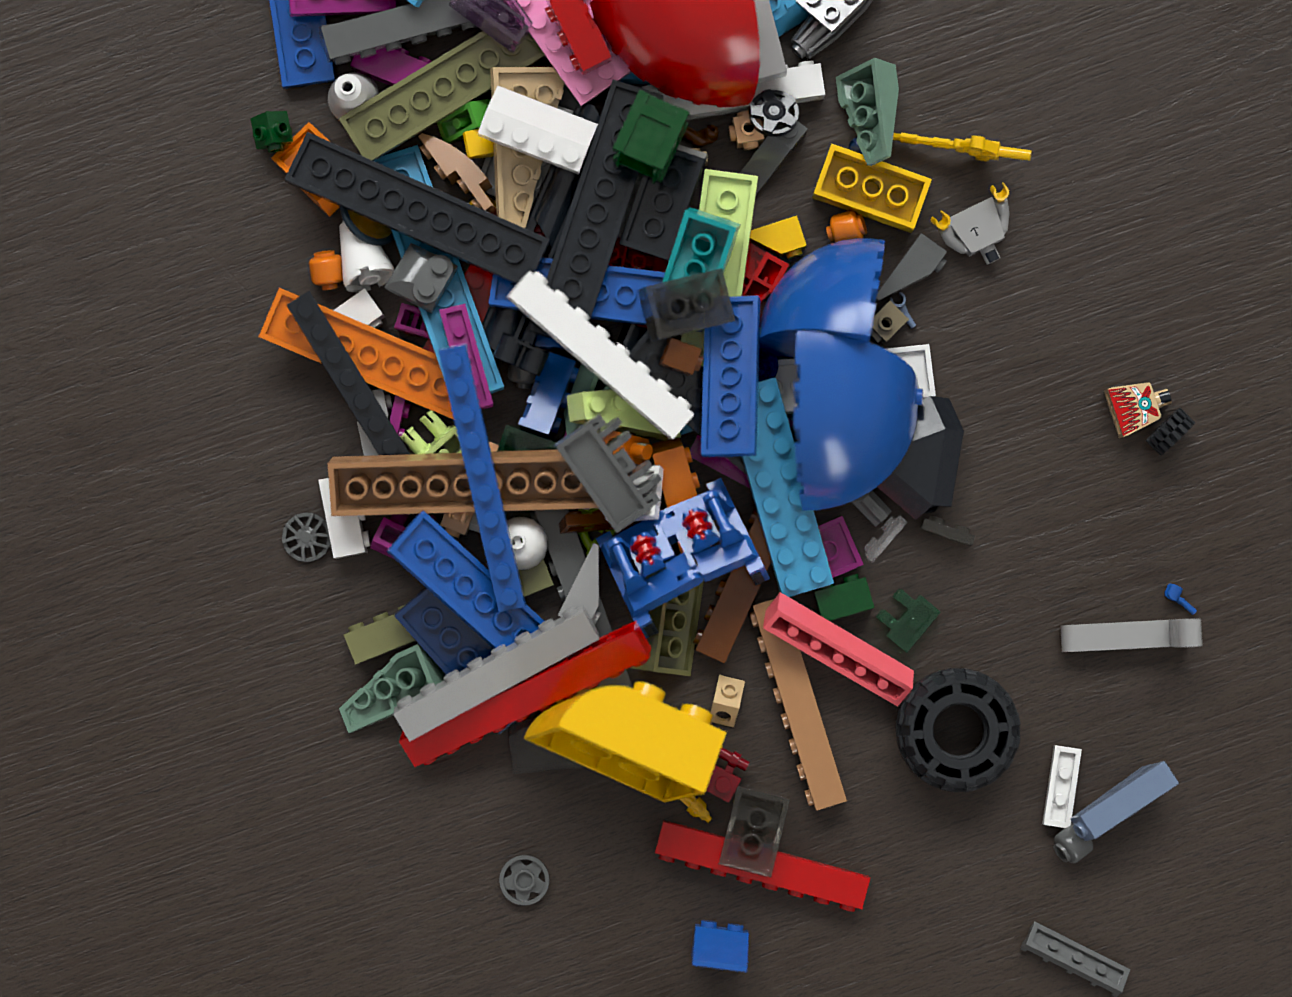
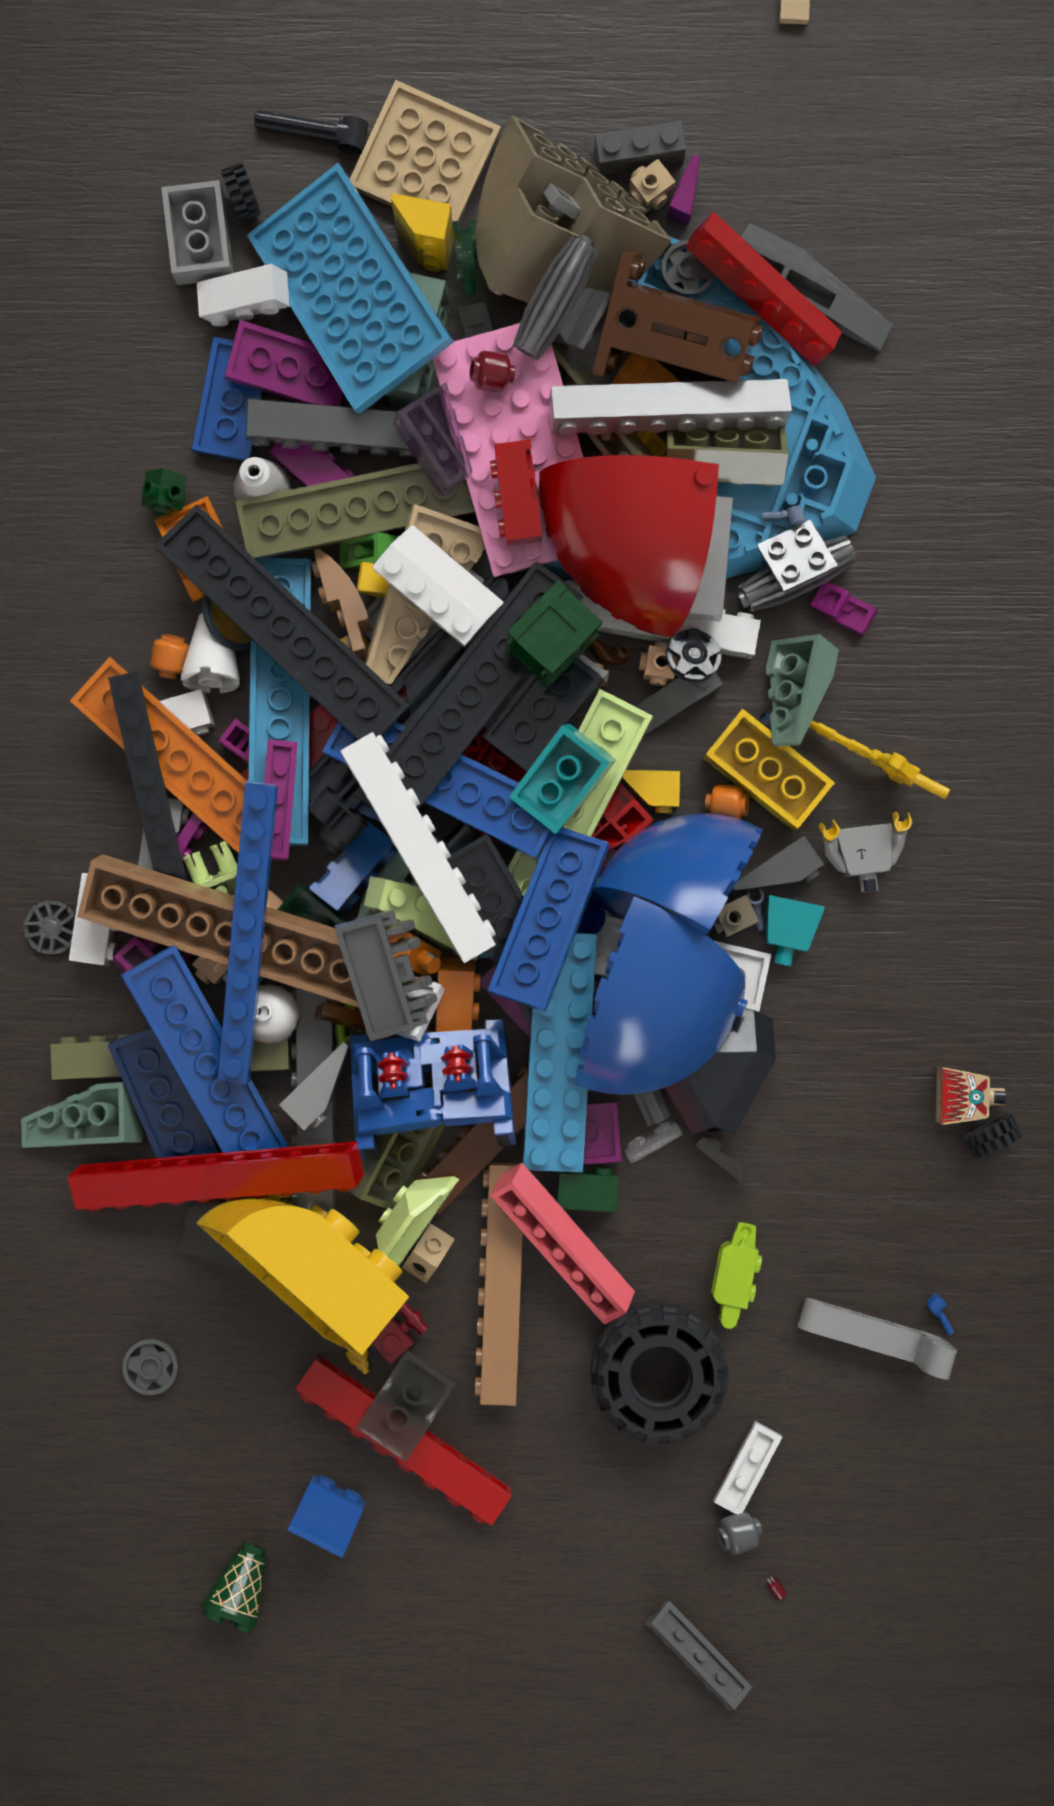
camera: 15 degrees right, 0 degrees up
(421, 277) = (263, 698): dark grey slope -> none
(495, 673) = (191, 1143): light grey brick -> none
(681, 357) = (504, 879): reddish brown brick -> none
(686, 305) = (528, 826): clear smoke slope -> none
(702, 668) = (411, 1215): none -> yellowish green wedge
(887, 28) = (843, 608): none -> magenta slope
(913, 621) = (651, 1240): clear green plate -> none
(936, 315) = (790, 926): none -> teal torso
(993, 625) = (735, 1273): none -> lime hinge
(1122, 880) = (776, 1588): none -> dark red piece
(1123, 800) = (808, 1509): sand blue slope -> none

